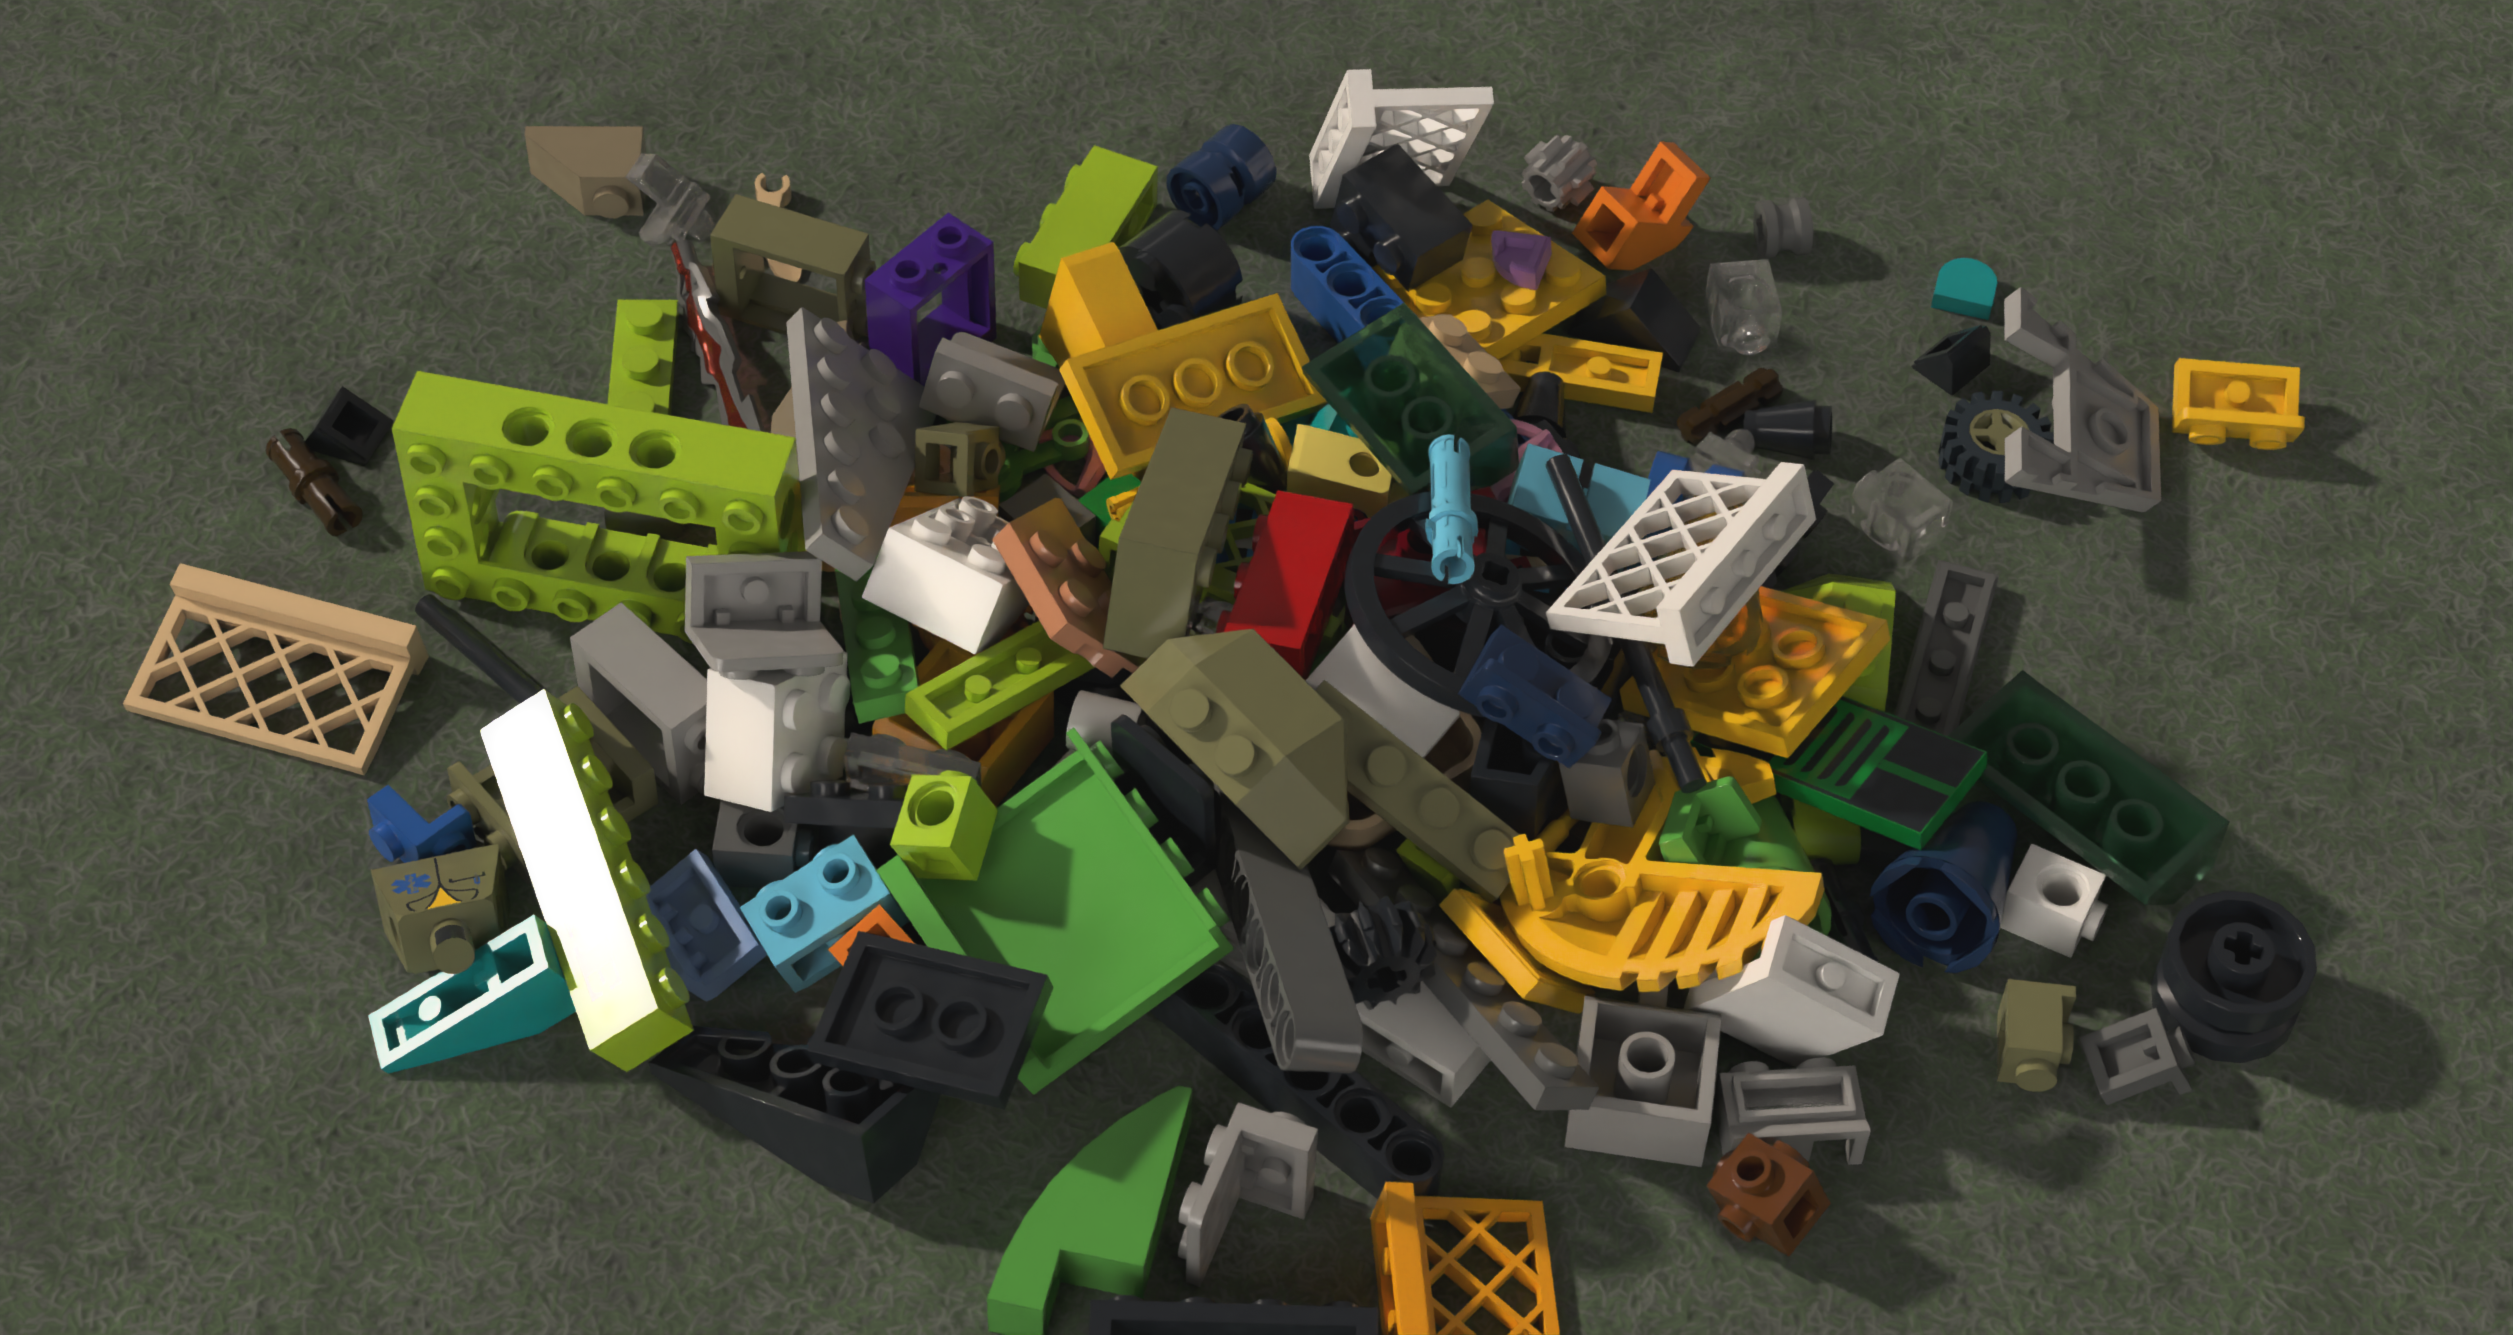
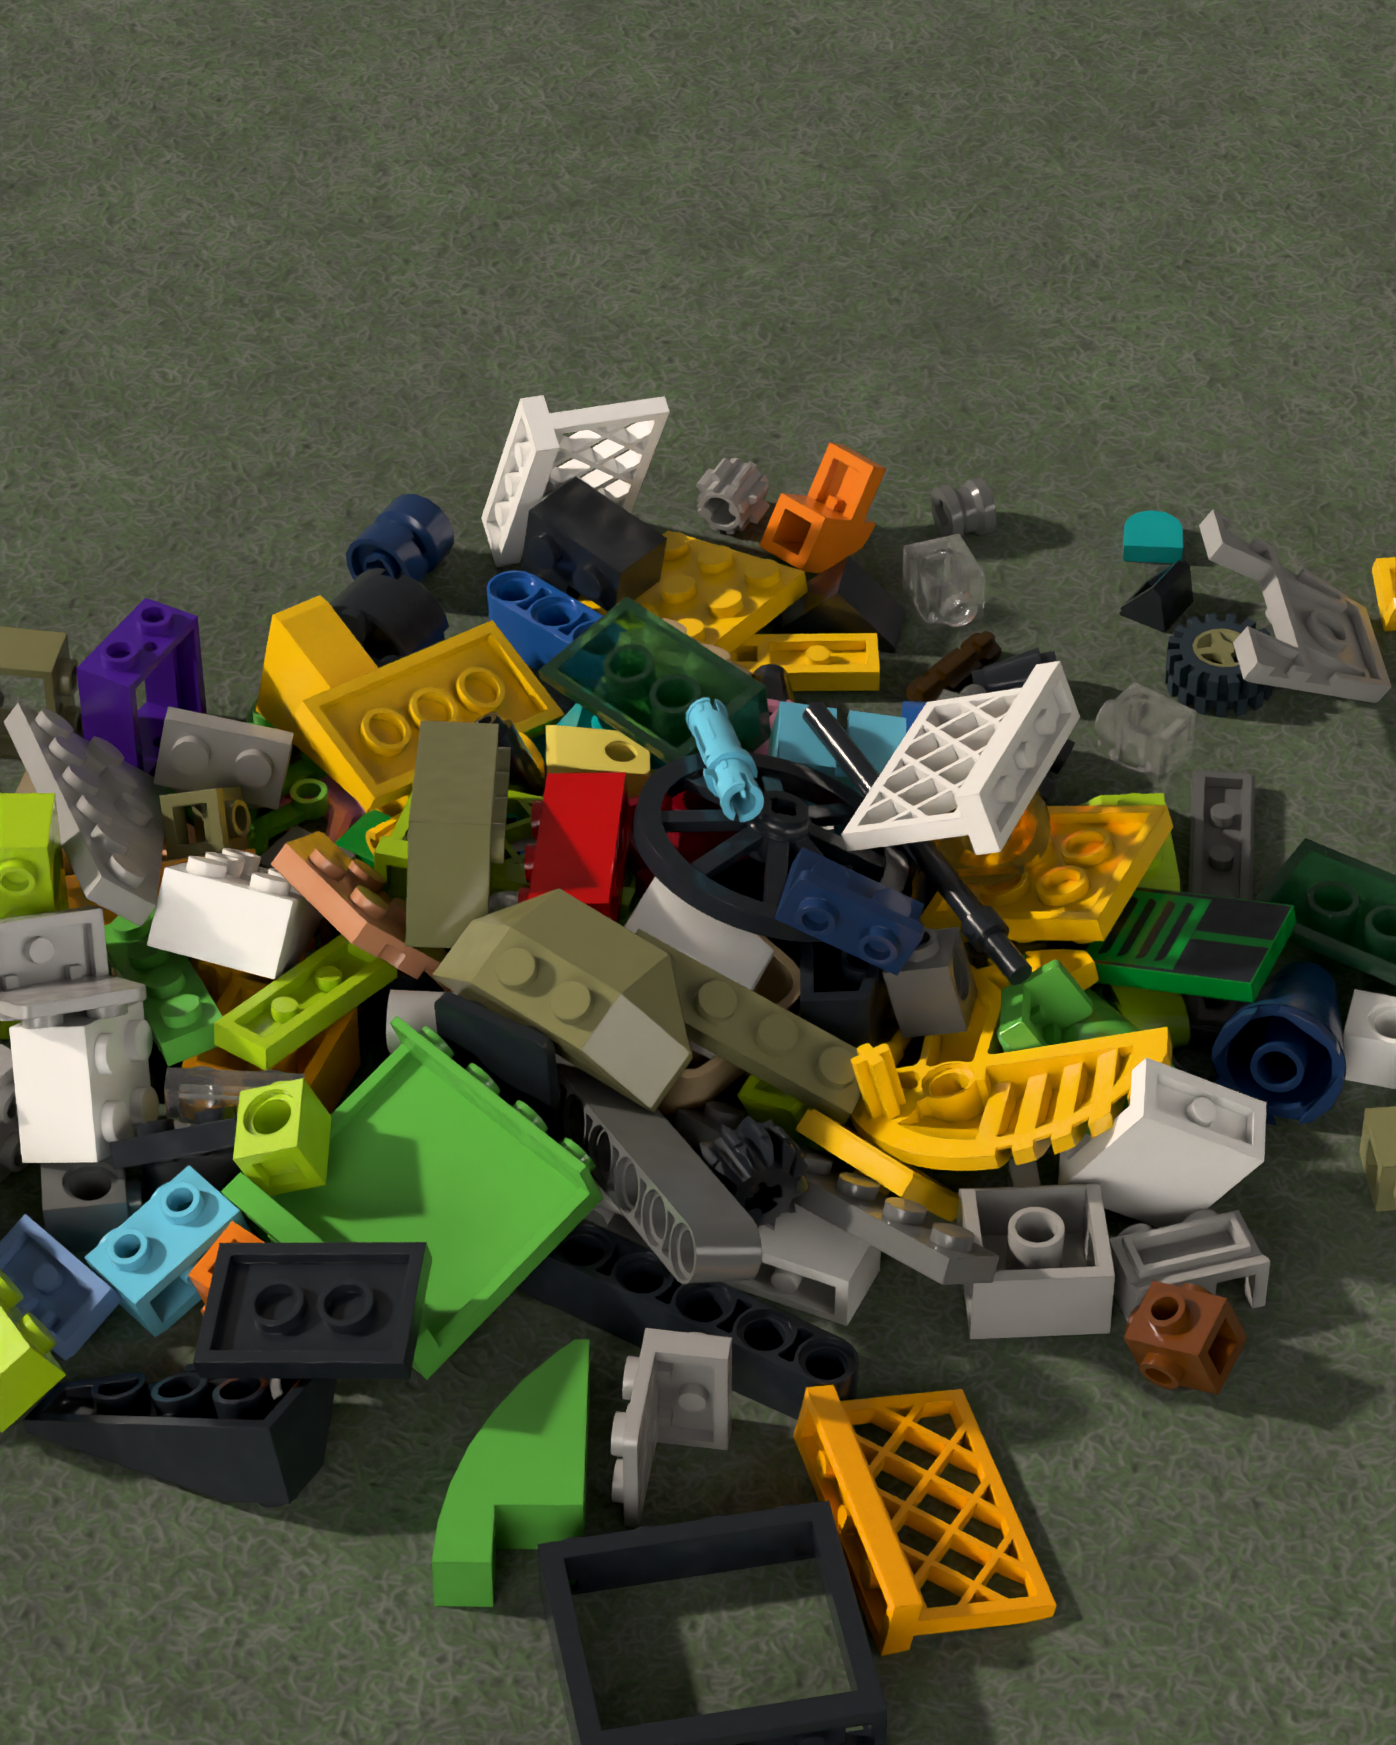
camera: 10 degrees left, 10 degrees down
(1100, 204) = (279, 578): lime brick -> none
(1521, 257) = (718, 565): medium lavender tile -> none

